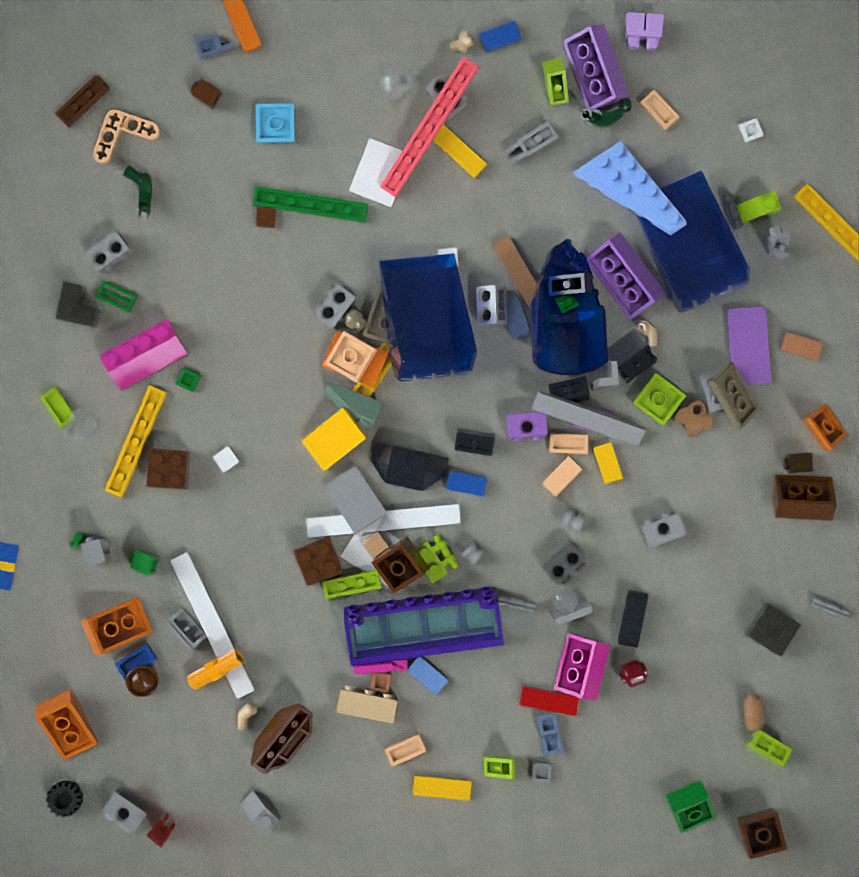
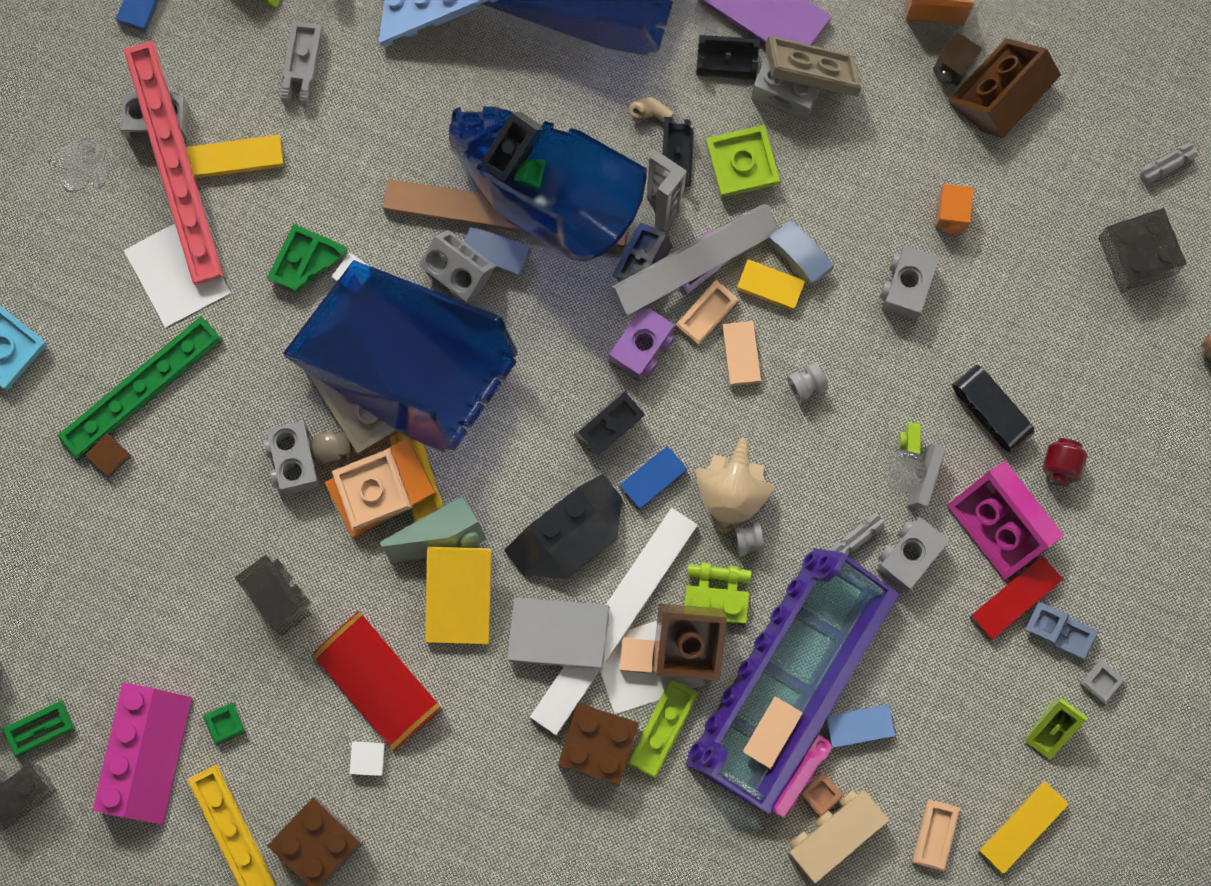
camera: 50 degrees left, 10 degrees down
(264, 353) = (273, 595): none -> clear smoke brick
(265, 433) = (376, 681): none -> red slope
(390, 637) = (772, 732): none -> light nougat tile
(435, 228) = (304, 258): none -> green wing
(462, 44) = (109, 47): tan piece -> none
(490, 529) = (733, 489): none -> tan piece
(540, 638) = (928, 545): none -> light grey brick
(560, 559) = (846, 436): dark grey brick -> none
(584, 591) = (910, 437): none -> lime plate
(625, 276) = (557, 81): medium lavender slope -> none
(636, 465) = (803, 253): none -> sand blue slope
(694, 421) = (804, 142): medium nougat plate -> none
(706, 349) = (727, 57): none -> black hinge
(719, 521) = (954, 208): none -> orange brick

